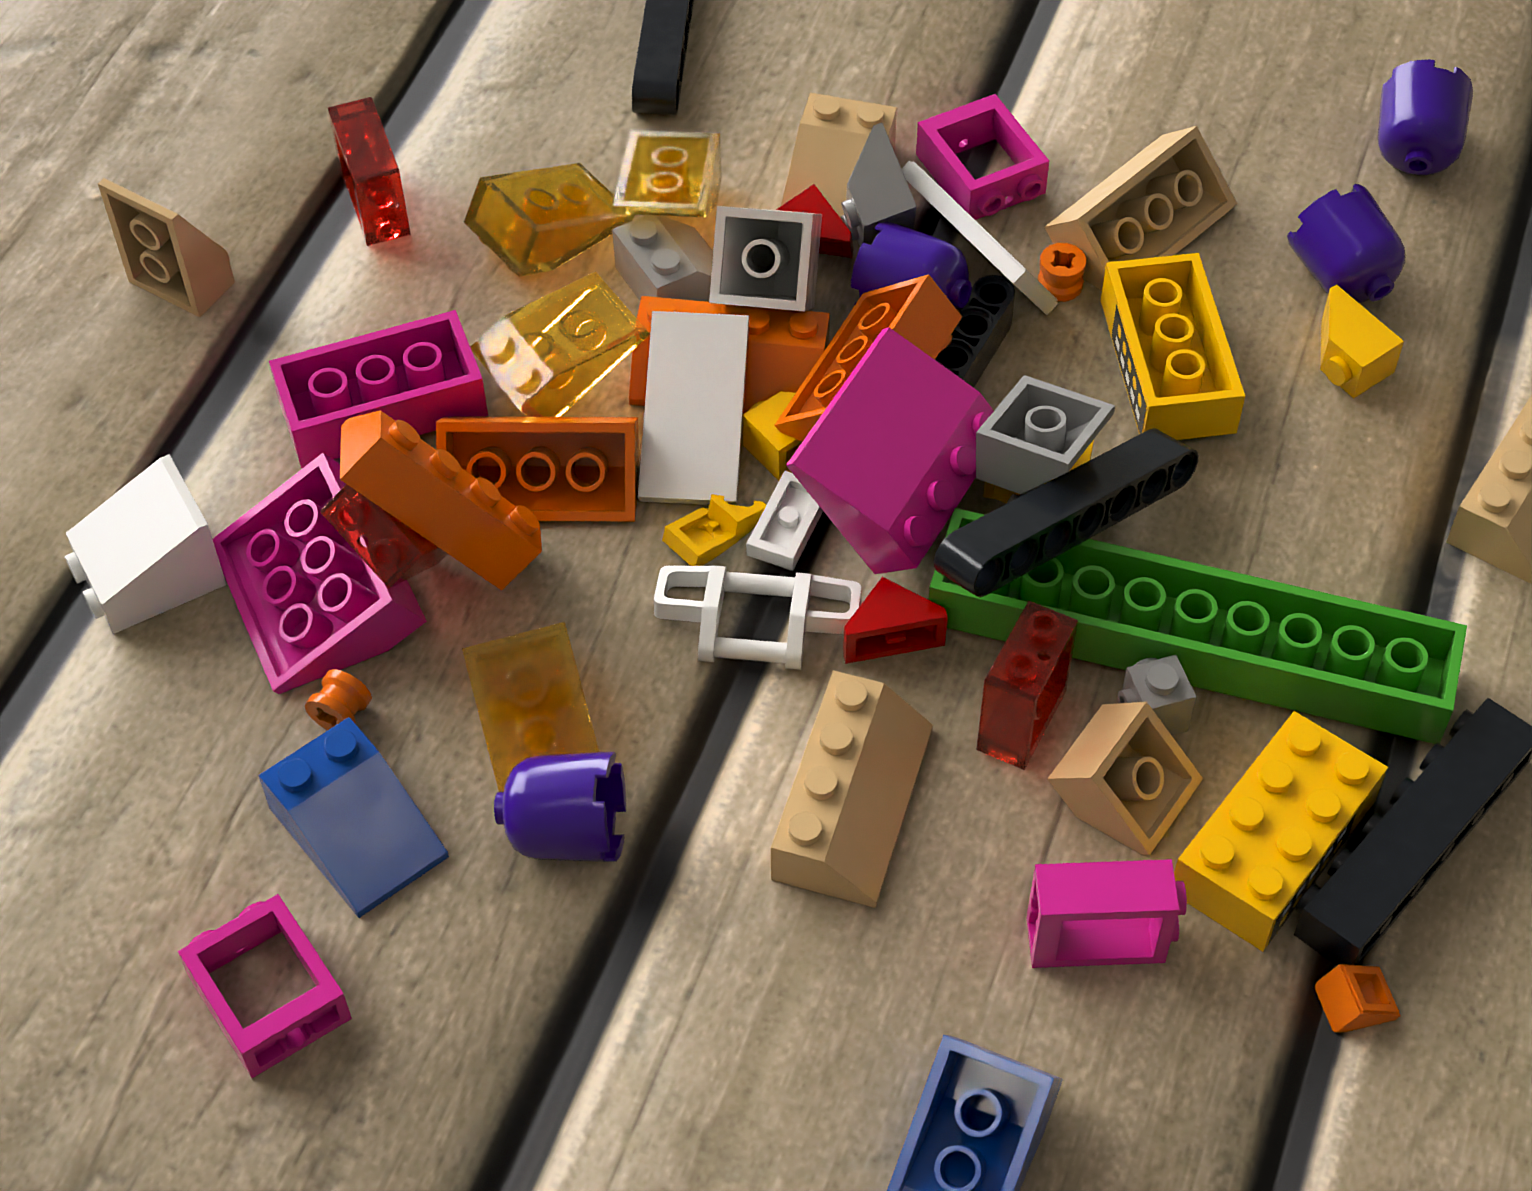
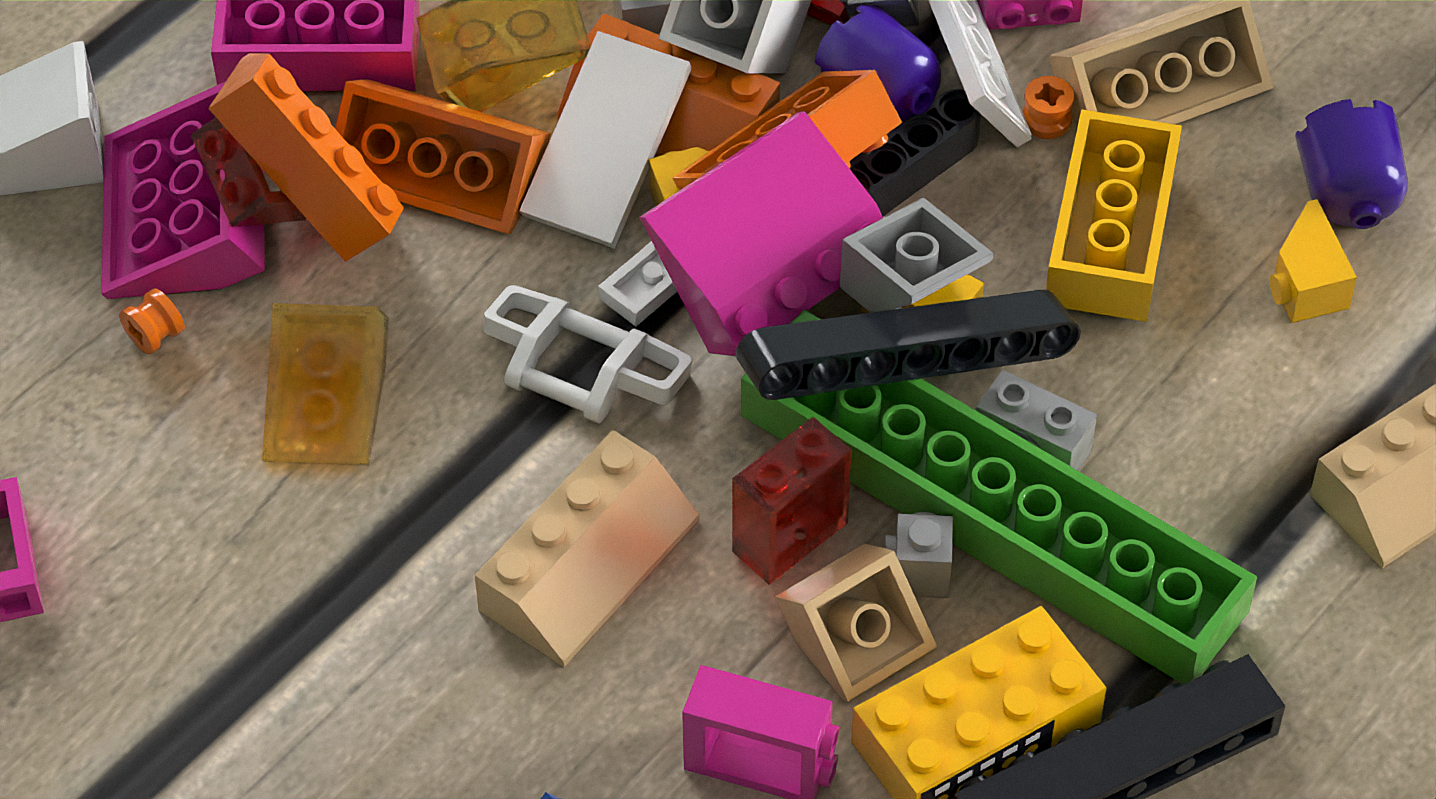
camera: 20 degrees right, 0 degrees up
(352, 817) = (118, 430): blue slope -> none
(564, 807) = (310, 481): dark purple cylinder -> none
(711, 530) = (574, 263): yellow slope -> none
(893, 624) = (700, 405): red slope -> none
(1200, 540) = (1040, 418): none -> light grey brick

